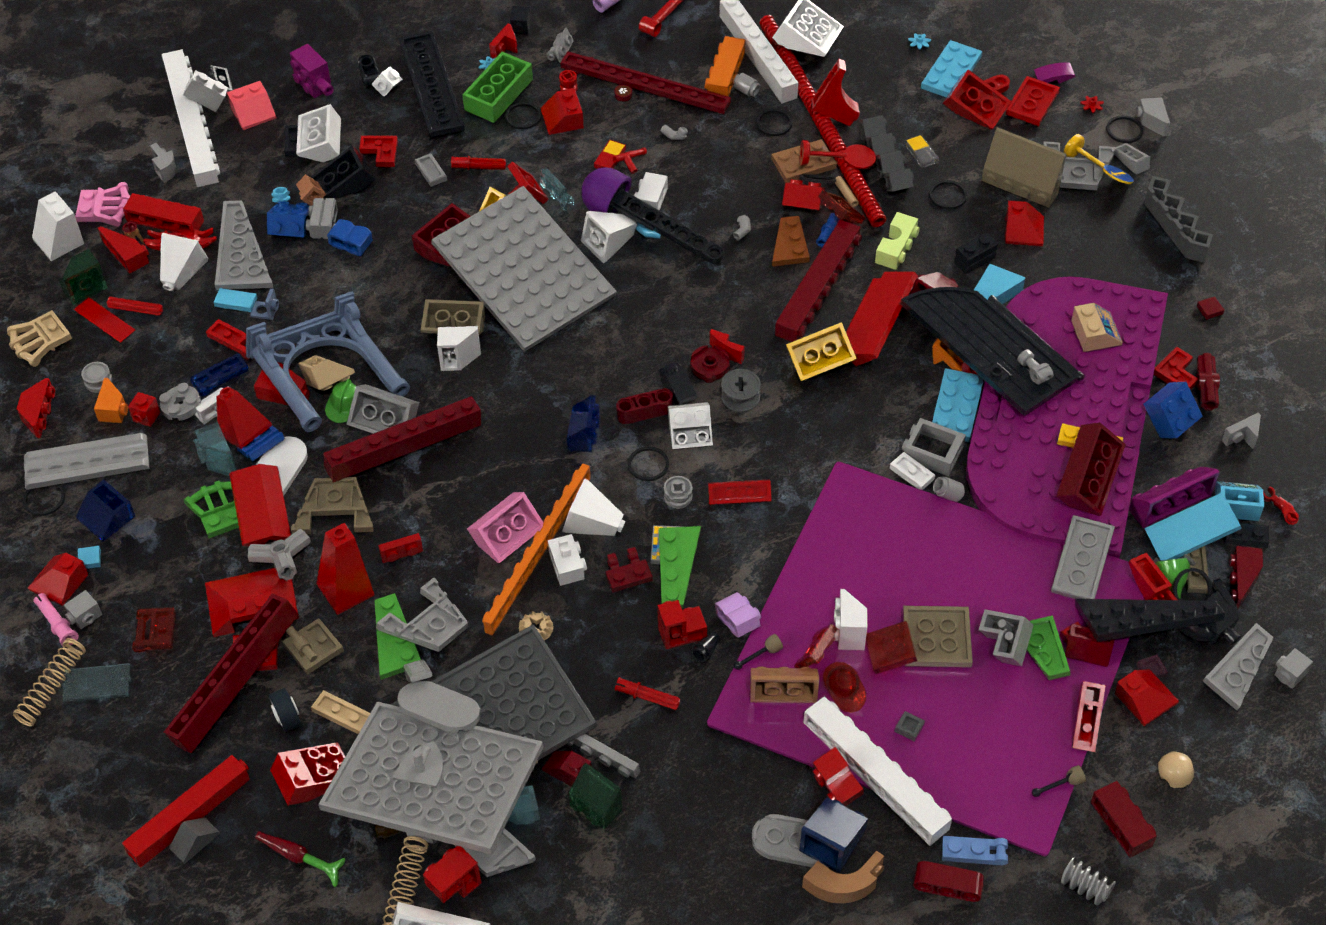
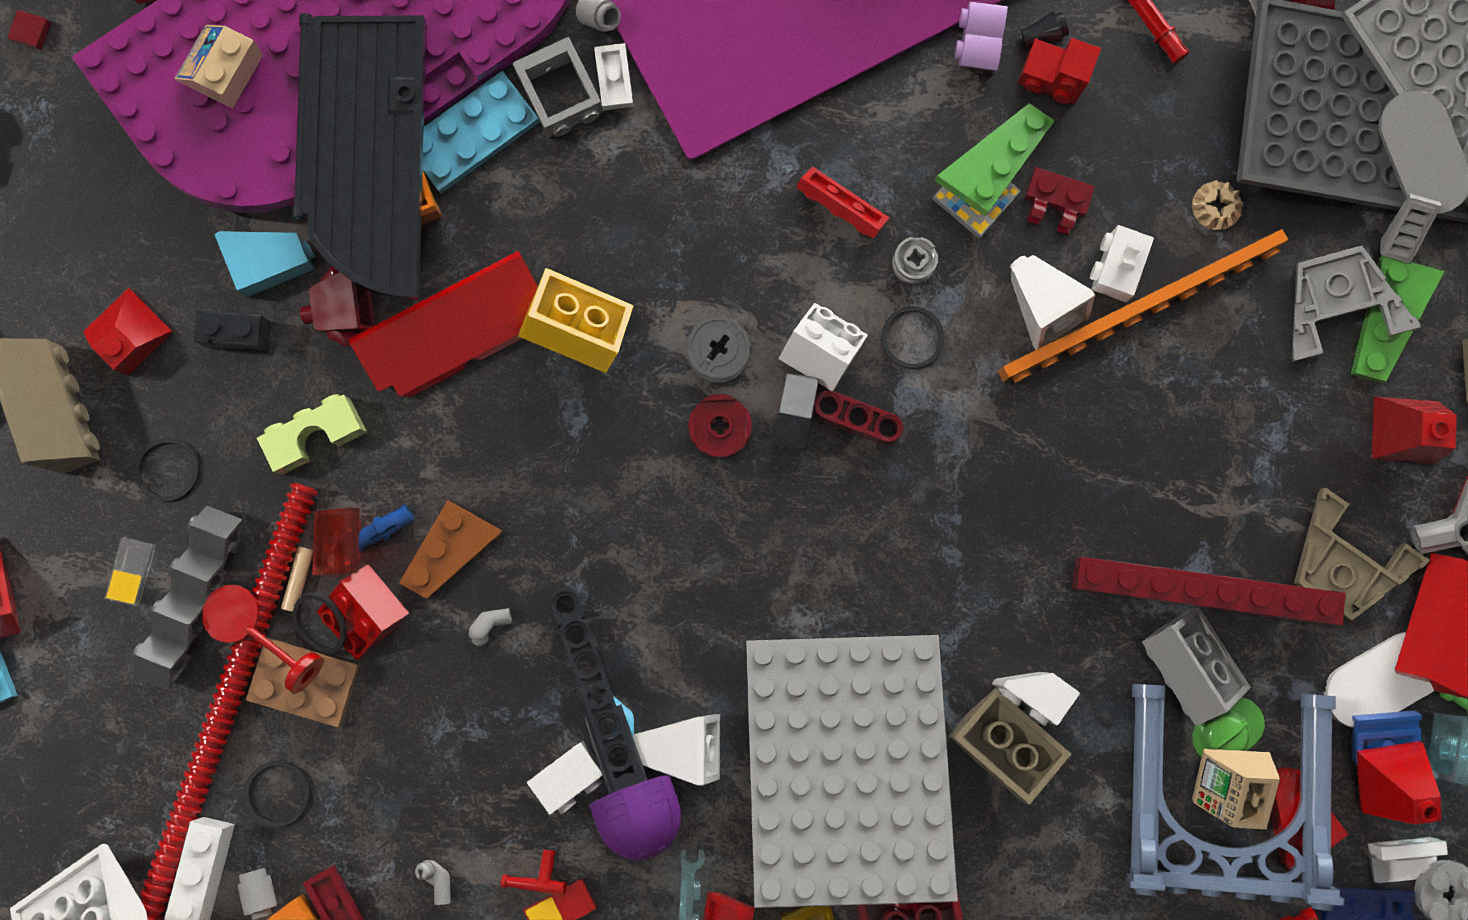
camera: 145 degrees left, 30 degrees up
(400, 548) = (1320, 433): red plate -> none
(506, 526) = (1161, 366): bright pink slope -> none
(583, 425) = (957, 446): clear blue slope -> none
(734, 350) = (680, 440): red slope -> none
(818, 281) = (470, 448): dark red brick -> none
(832, 99) = (171, 738): red arch -> none
(1038, 372) = (359, 44): light grey leg -> none

